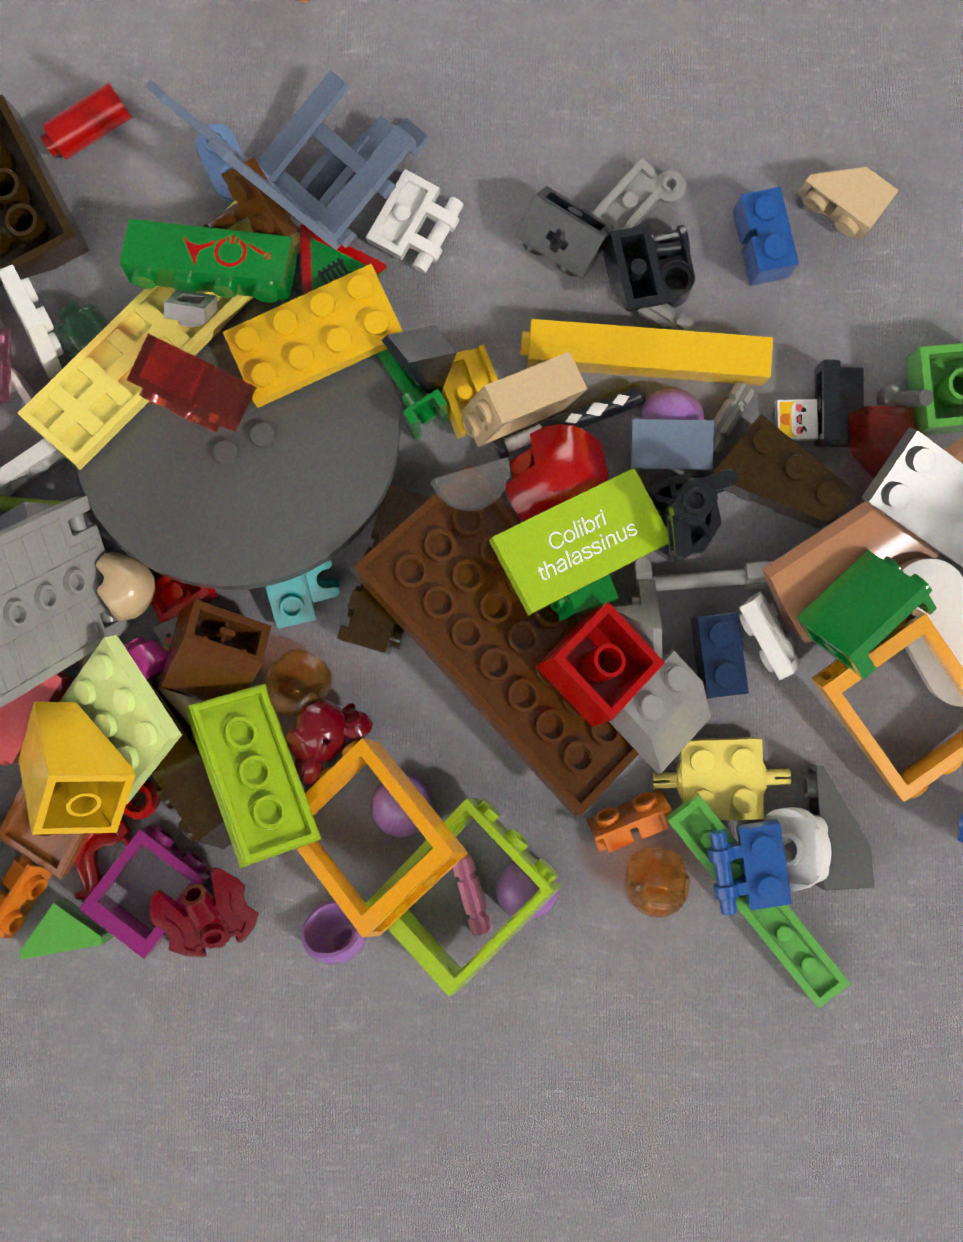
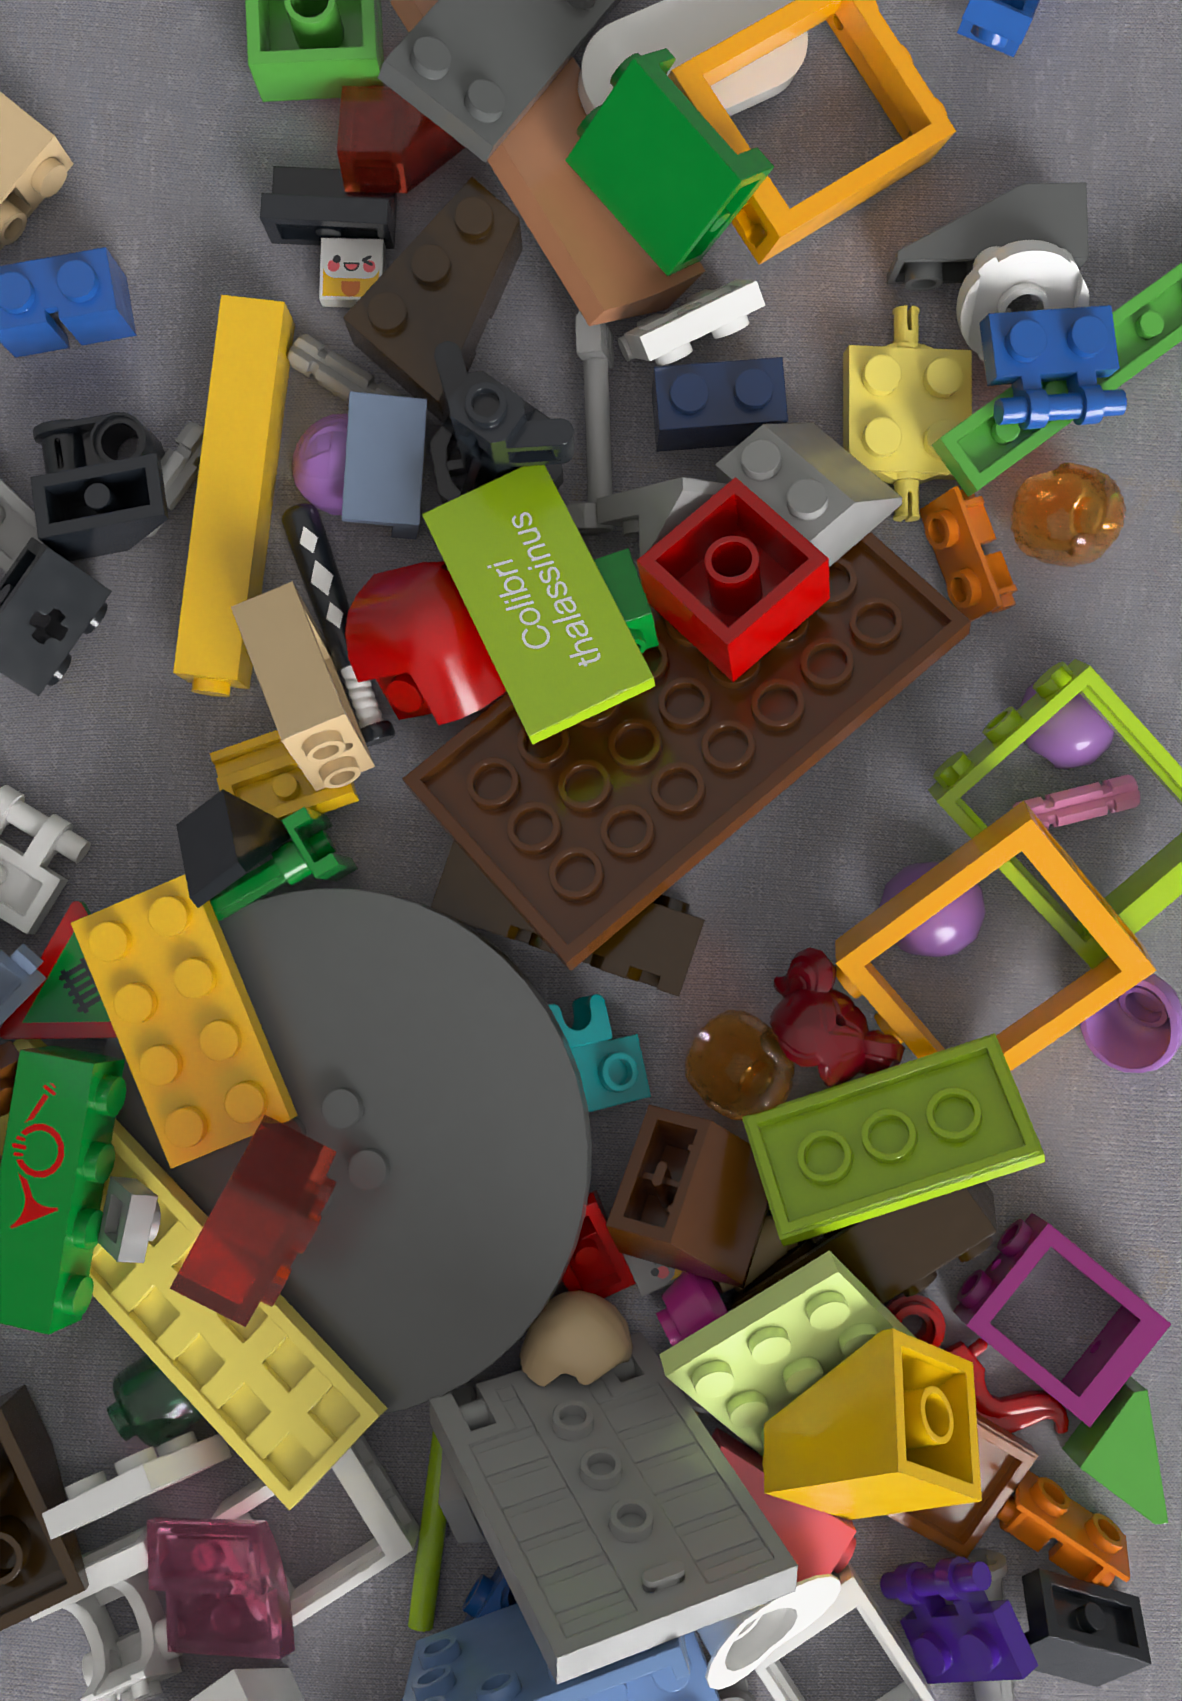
camera: 85 degrees left, 0 degrees up
(204, 918) = (1109, 1225): dark red piece -> none
(473, 487) = (441, 770): clear tile -> none
(898, 396) = (322, 113): dark grey bar -> none

